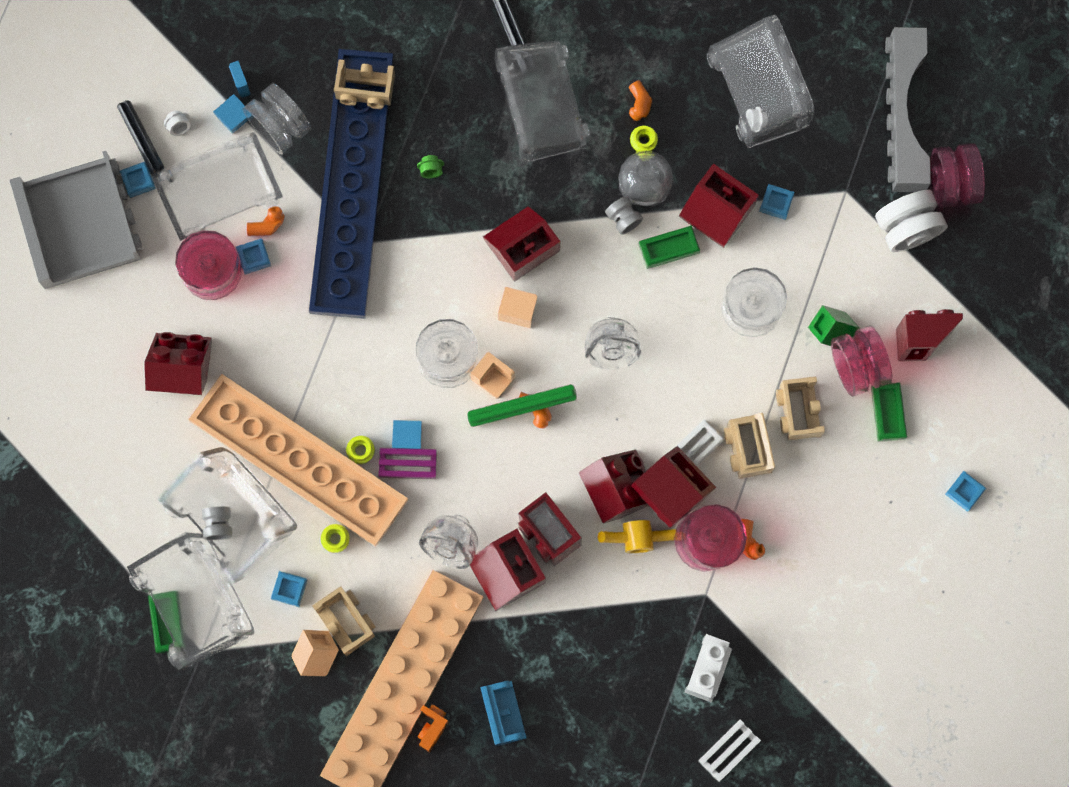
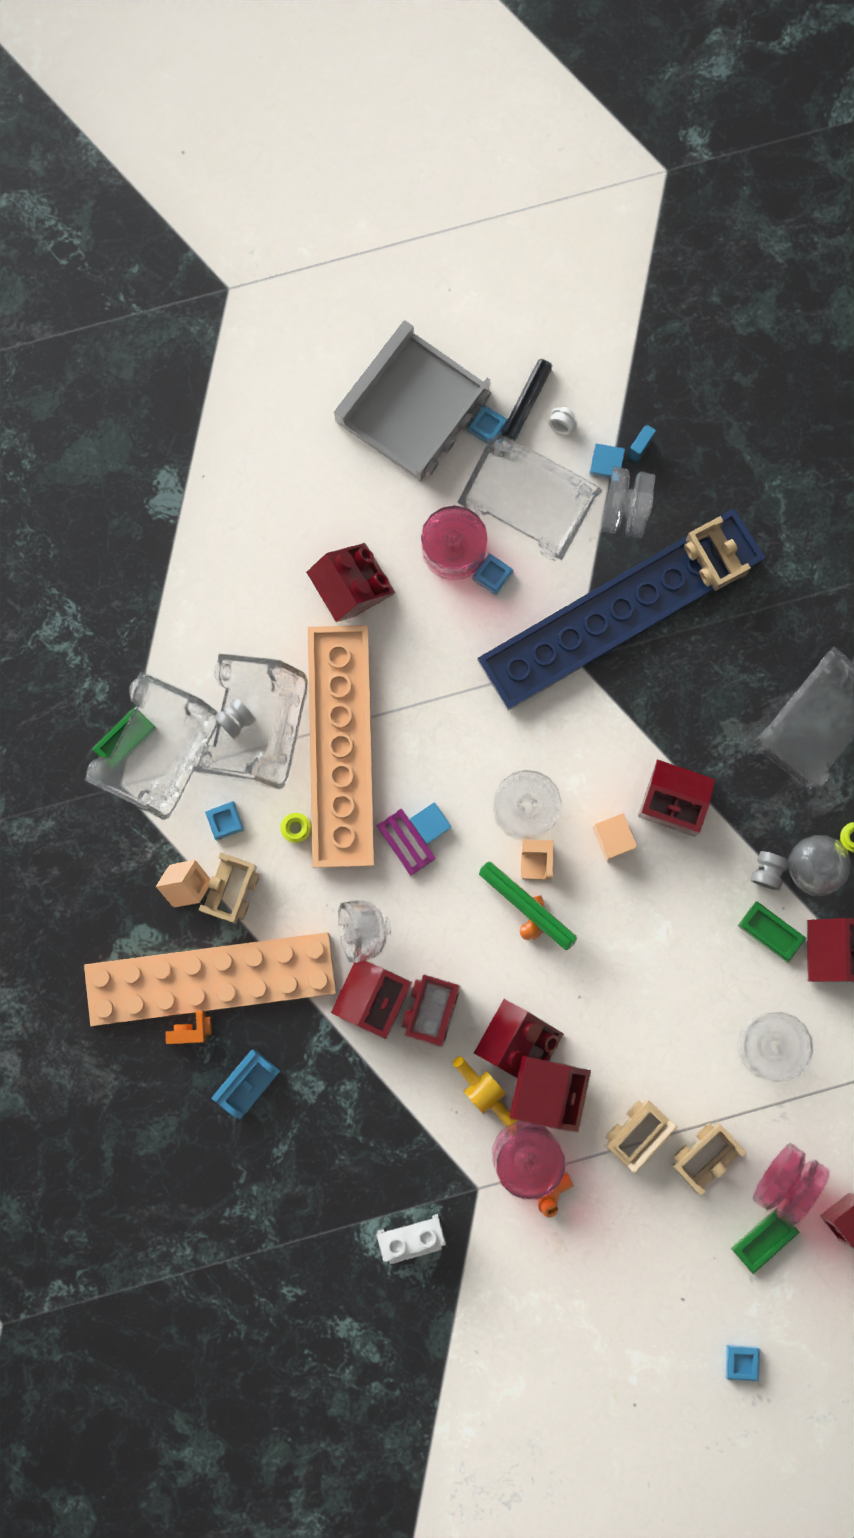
camera: 60 degrees right, 5 degrees up
(269, 225) = (530, 567): orange arm -> none
(360, 441) = (385, 783): neon yellow plate -> none
(430, 166) = (687, 667): bright green plate -> none
(612, 343) = (643, 944): clear cylinder -> none
(711, 432) = (626, 1090): white tile -> none
(746, 733) = (327, 1303): white tile -> none
(831, 324) = (807, 1132): green panel -> none

